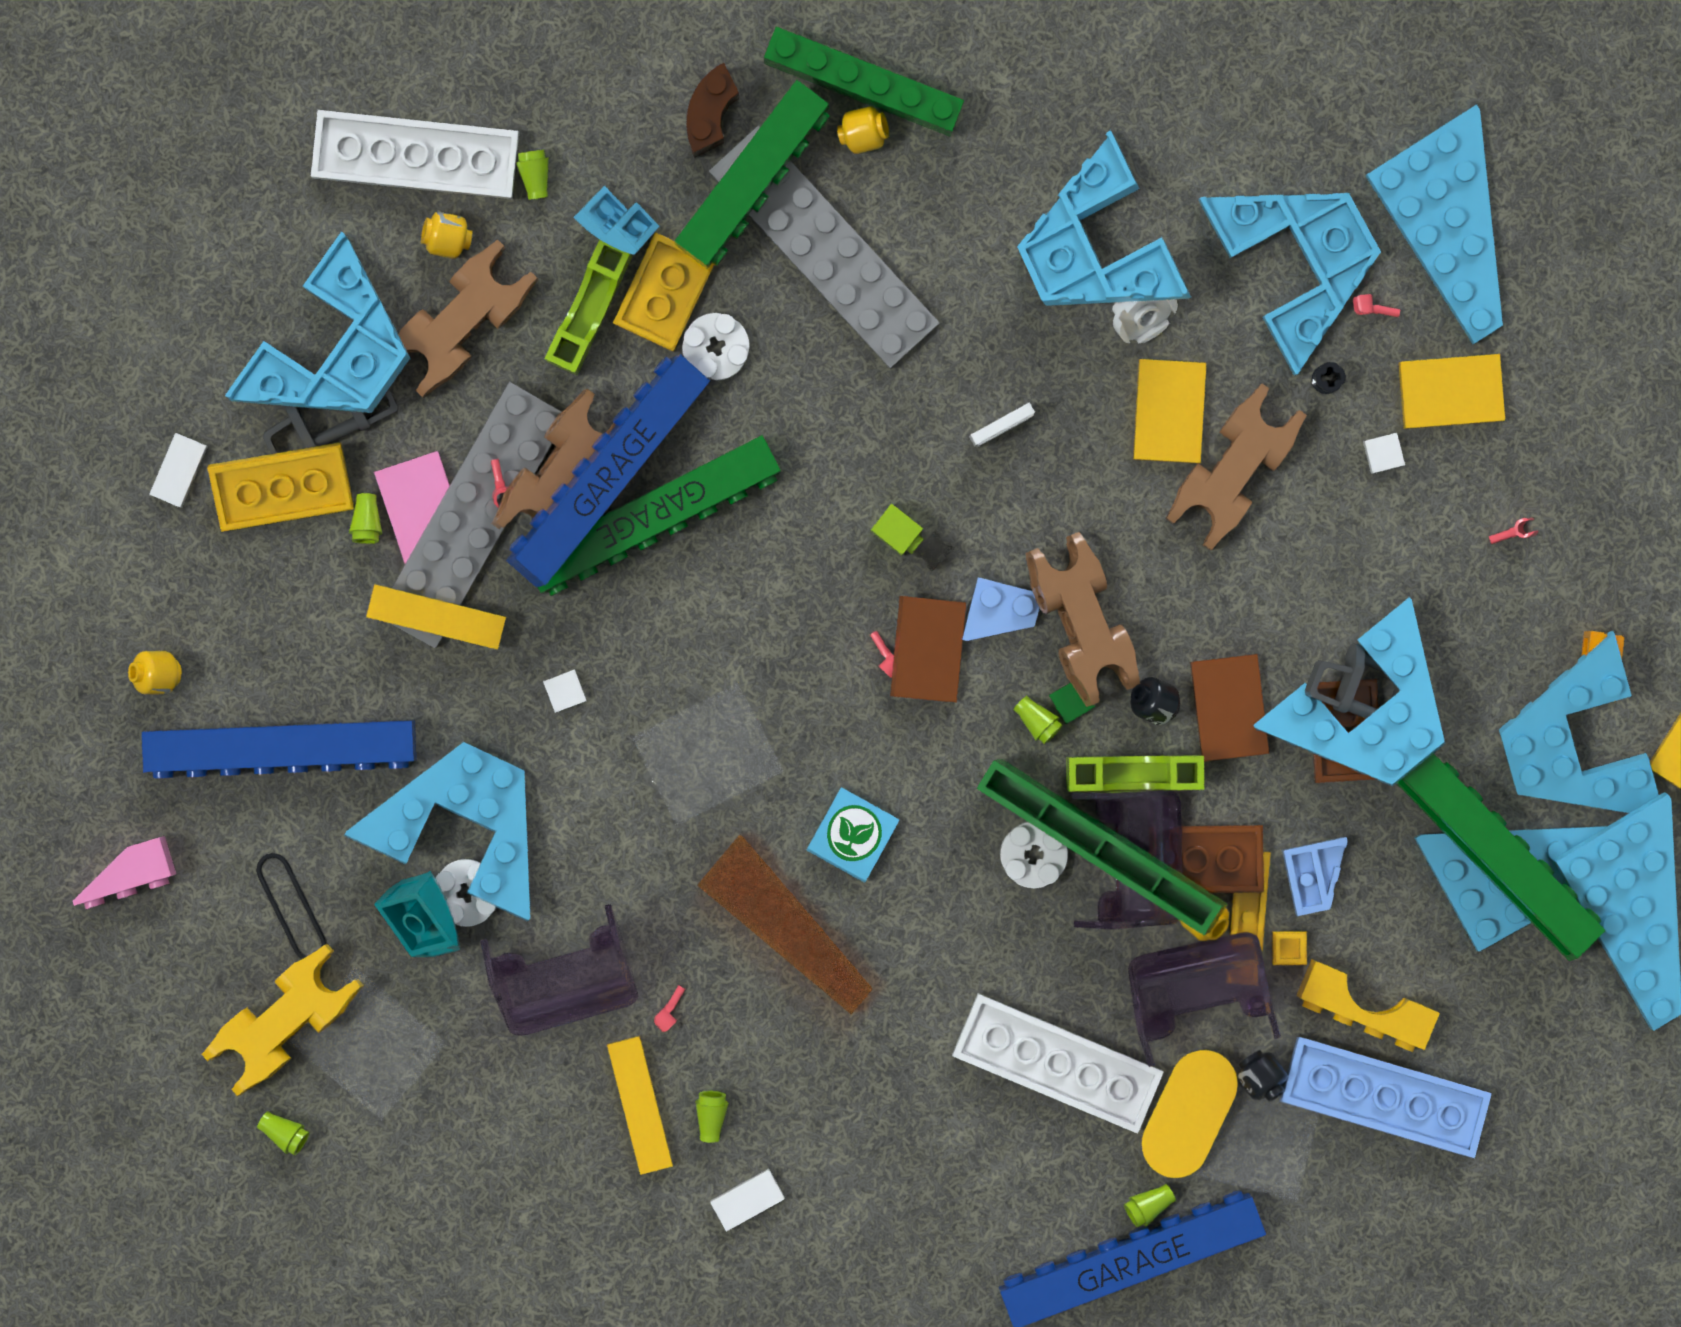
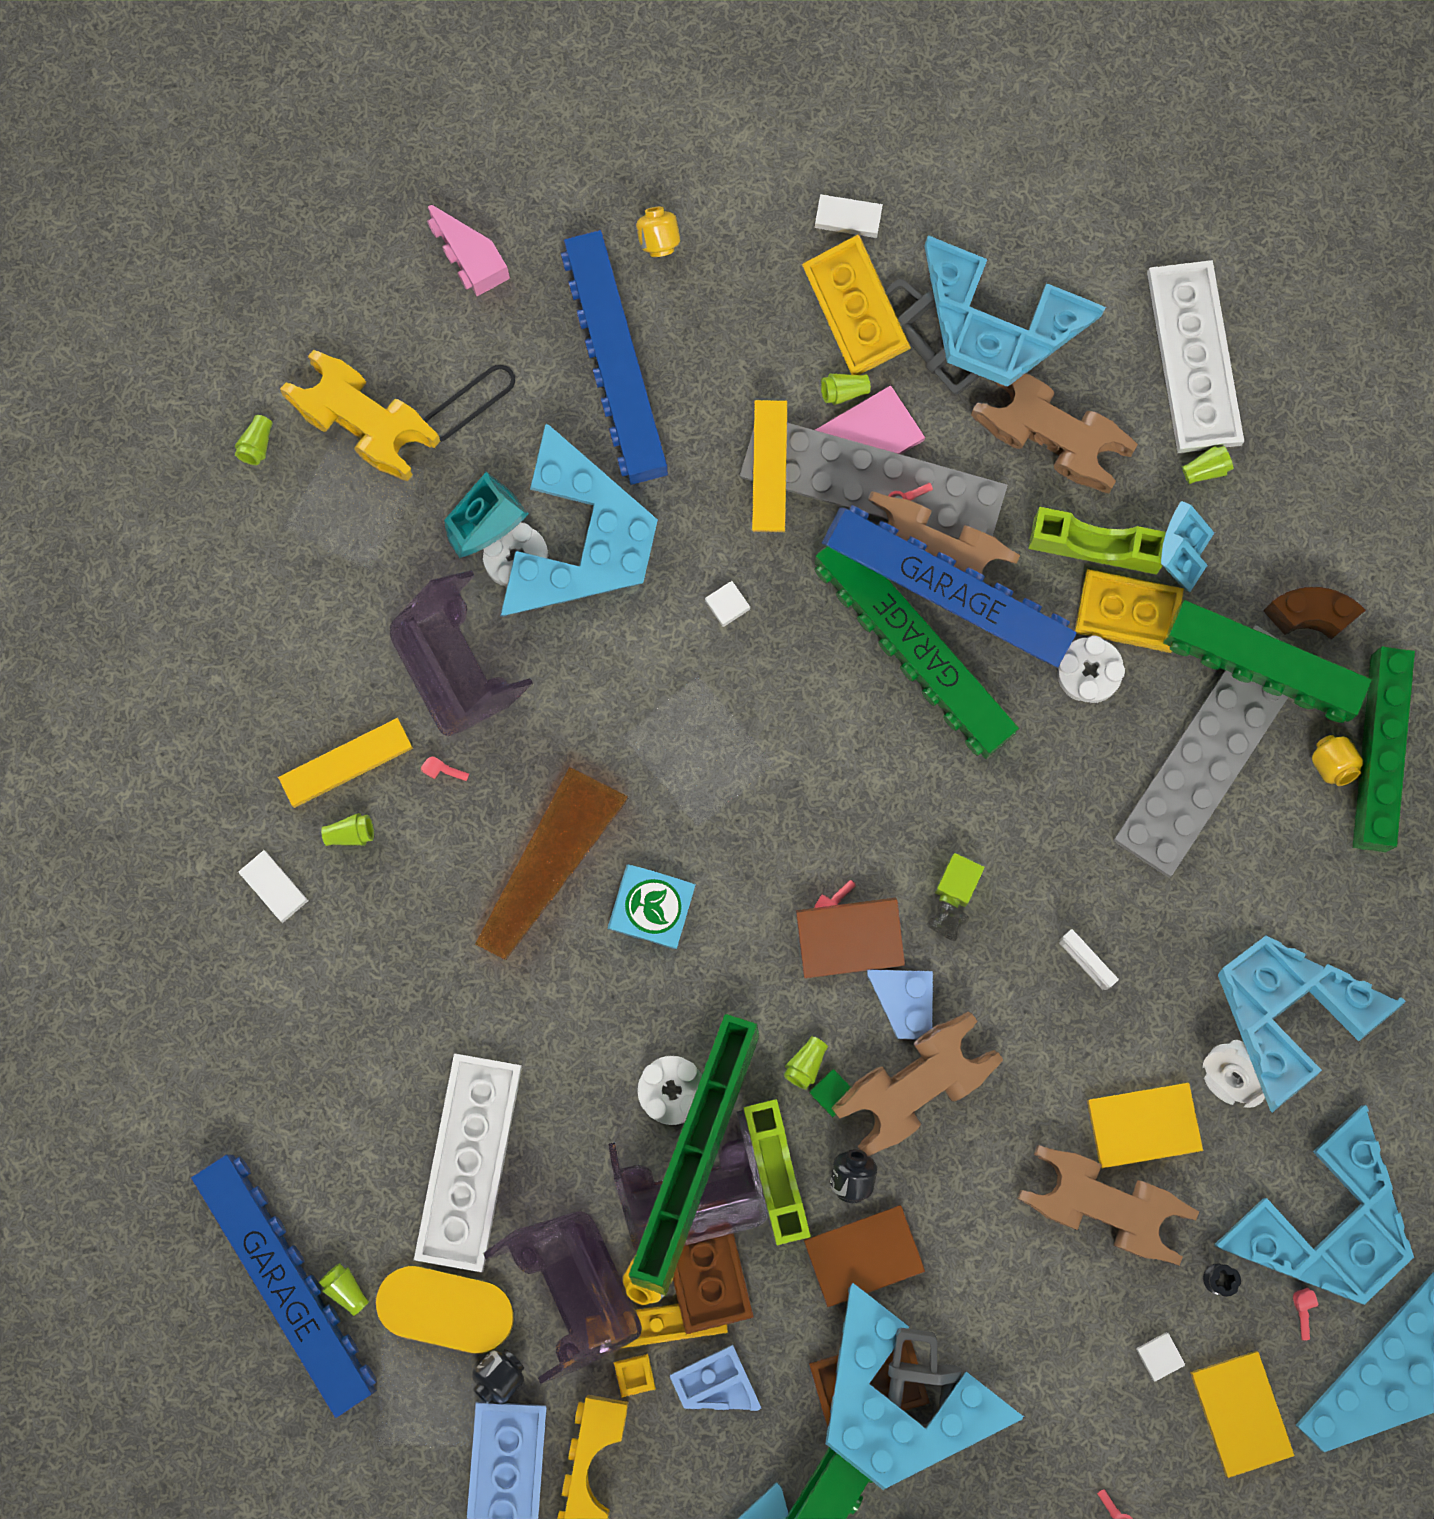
camera: 75 degrees right, 10 degrees down
(446, 235) = (1128, 398): yellow head -> none

